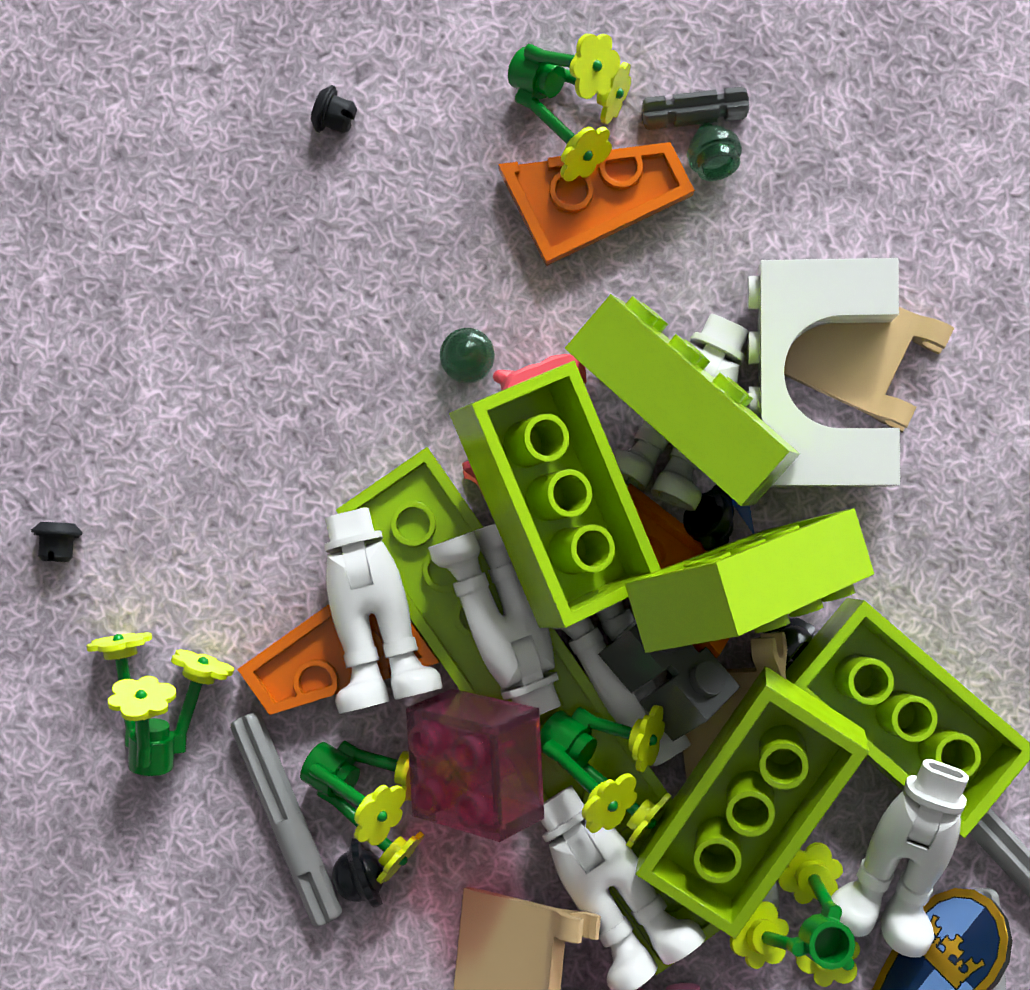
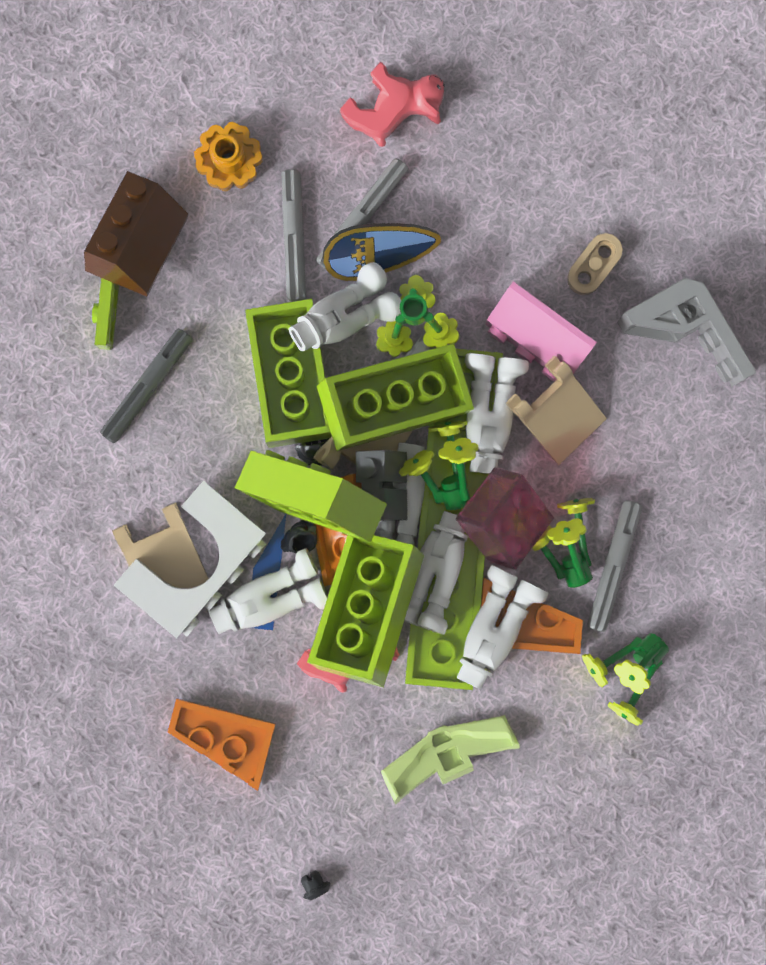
camera: 135 degrees left, 0 degrees up
(56, 540) = (615, 788): black piece -> none
(302, 405) = (447, 753): none -> yellowish green plate
(356, 875) = (603, 512): black piece -> none
(467, 355) = (349, 711): clear green plate -> none
(592, 71) = (179, 793): plant -> none
(680, 399) = (270, 603): lime brick -> none
(695, 108) = (140, 739): dark grey axle -> none
(714, 152) = (149, 710): clear green plate -> none

